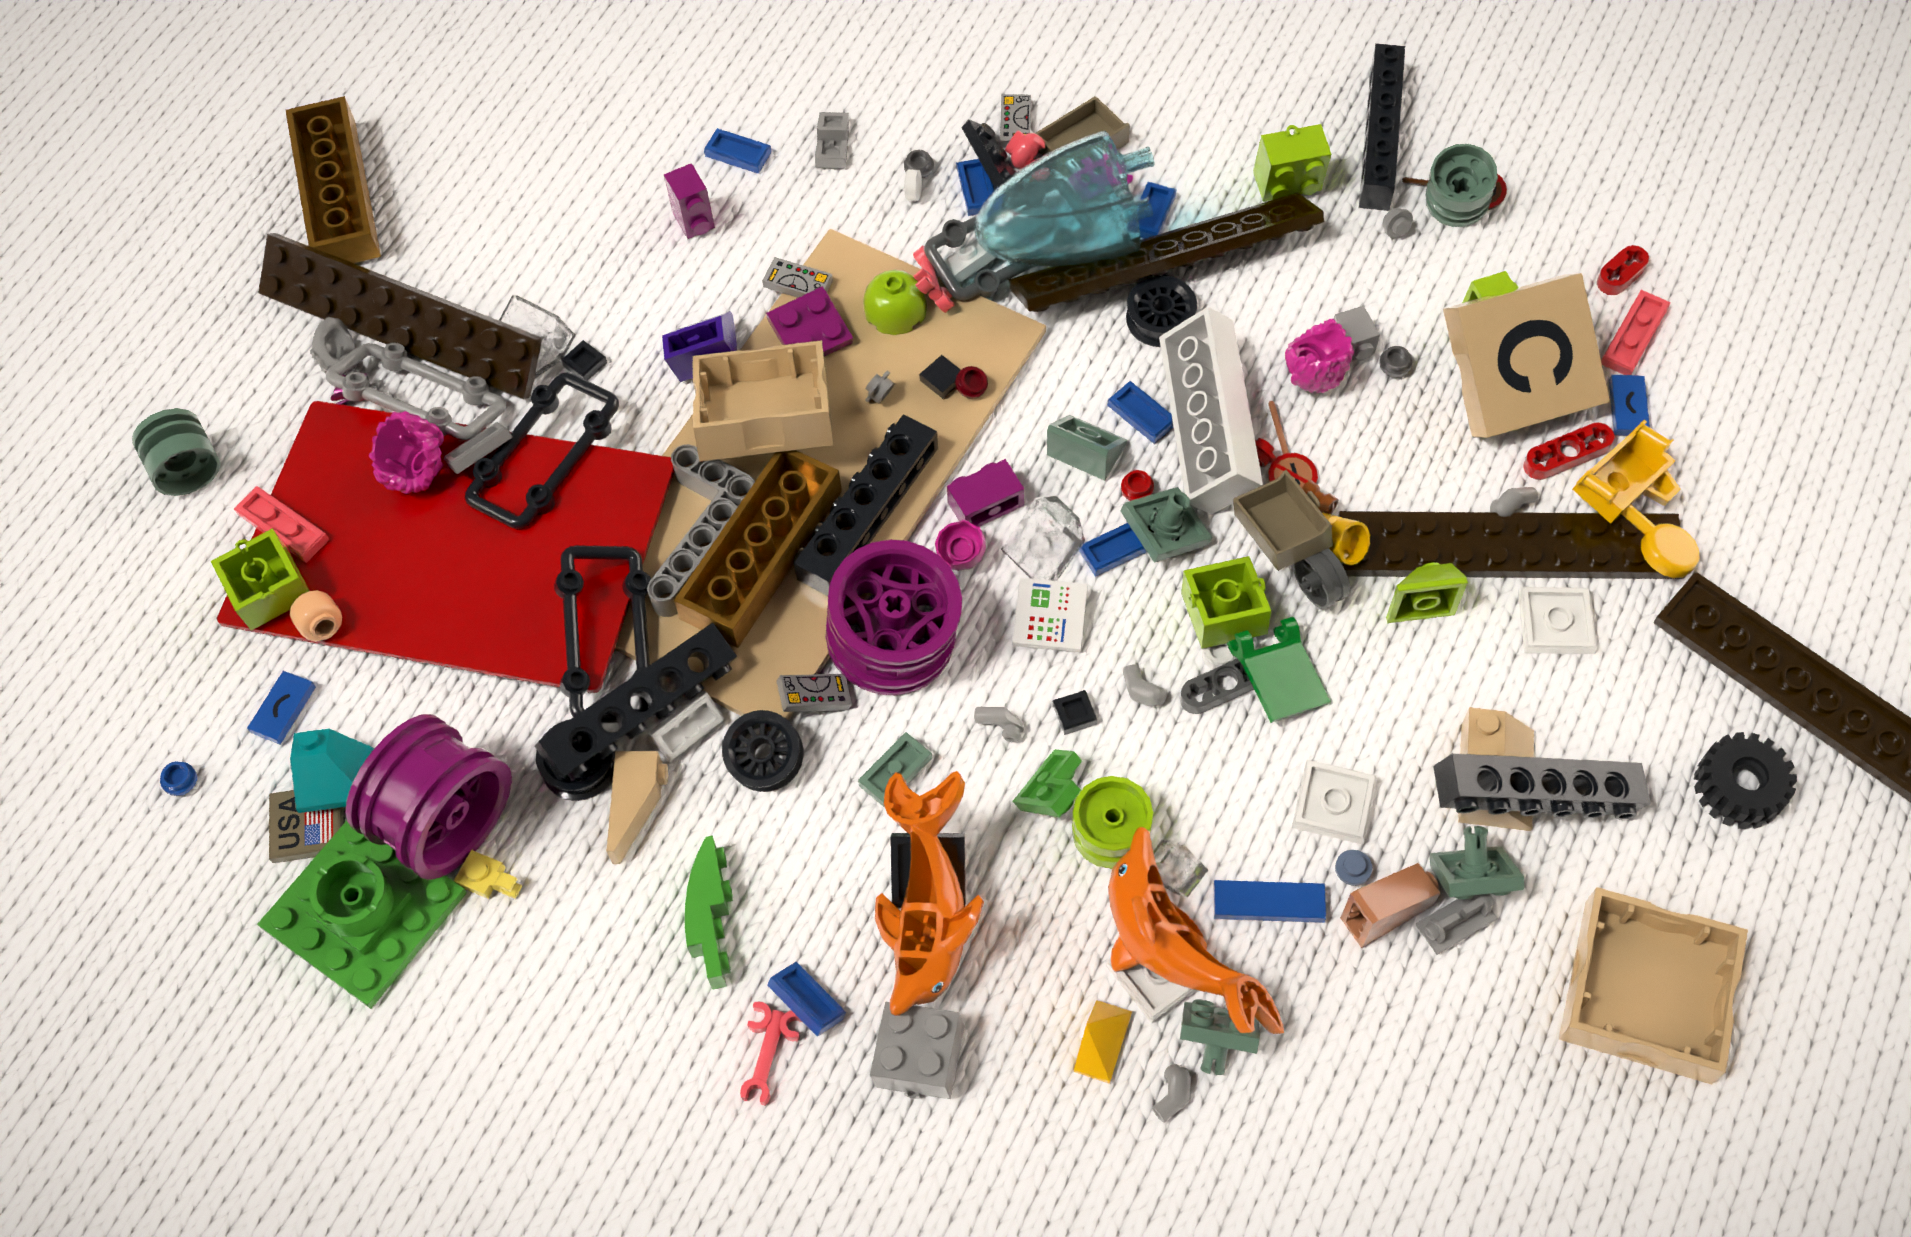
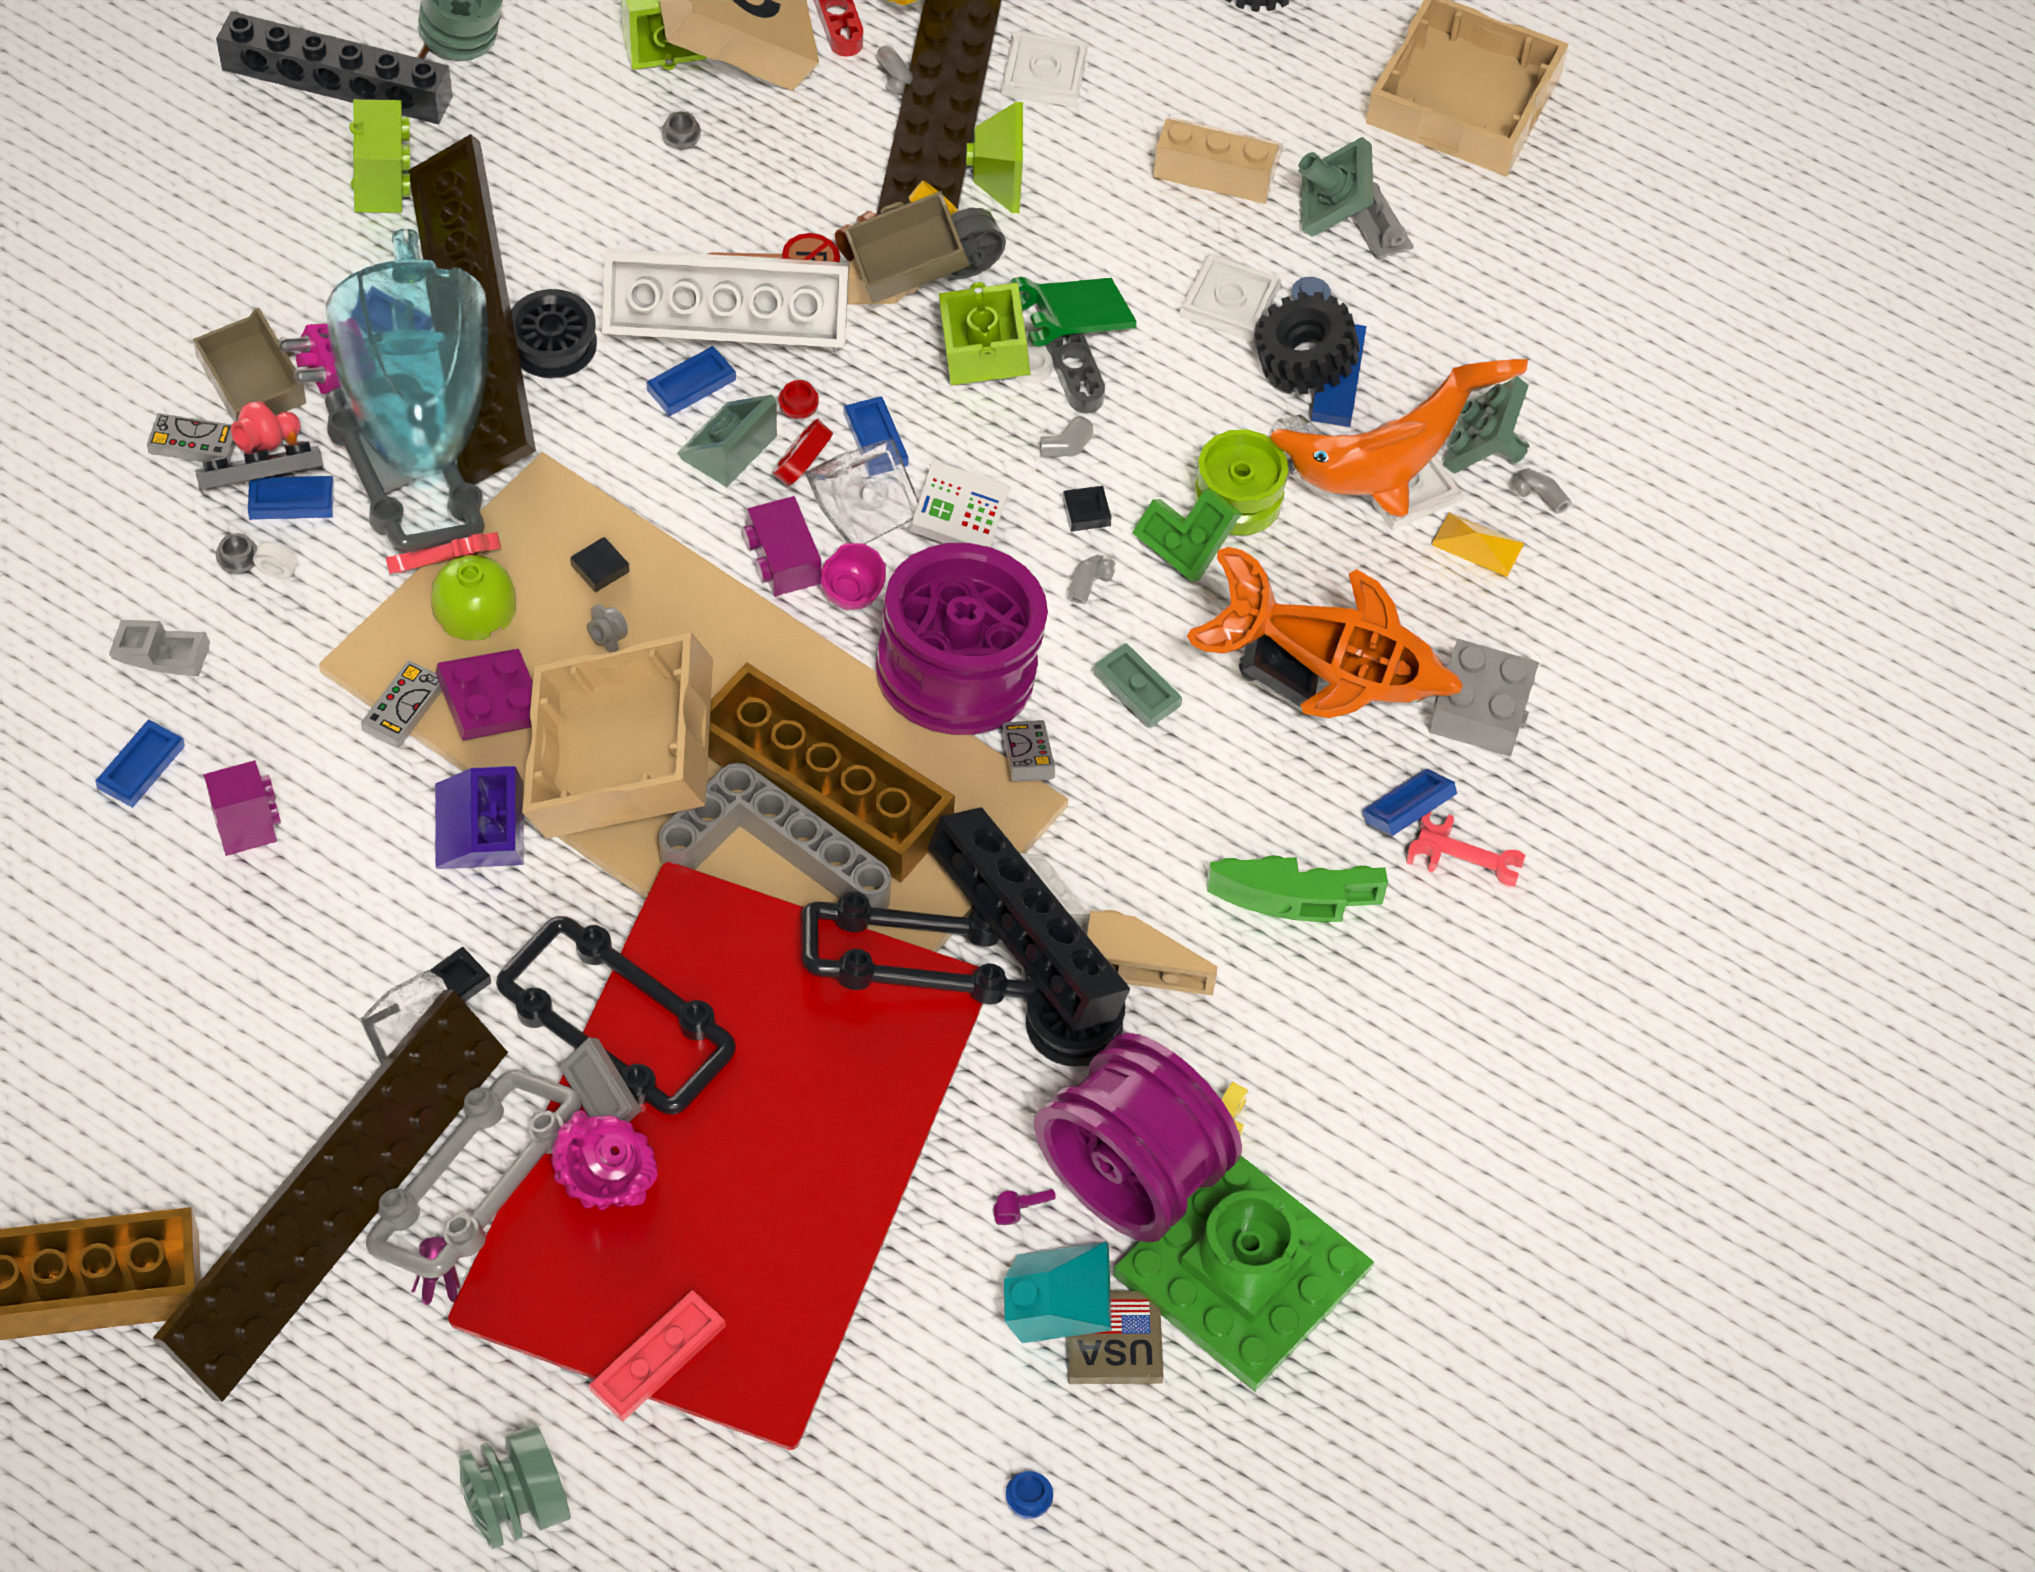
camera: 90 degrees left, 5 degrees down
(260, 578) = (763, 1358): lime brick -> none
(281, 707) = (940, 1366): blue tile -> none
(316, 615) = (828, 1295): light nougat head -> none
(331, 344) = (367, 1288): light grey hat -> none
(747, 724) = (1120, 797): black wheel -> none
(906, 437) = (771, 640): black brick -> none
(968, 261) = (419, 510): white plate -> none
(971, 382) = (620, 530): dark red plate -> none
(1080, 494) = (802, 452): none -> red beam
(1173, 520) = (864, 372): sand green plate -> none
(1282, 841) = (1302, 322): none -> black tyre
(1319, 357) = (670, 186): dark pink hair -> none
(1361, 329) = (638, 156): light grey brick -> none
(1389, 903) = (1364, 267): nougat slope -> none
(1397, 222) = (484, 85): light grey plate -> none
(1541, 785) = (1262, 105): brick -> none

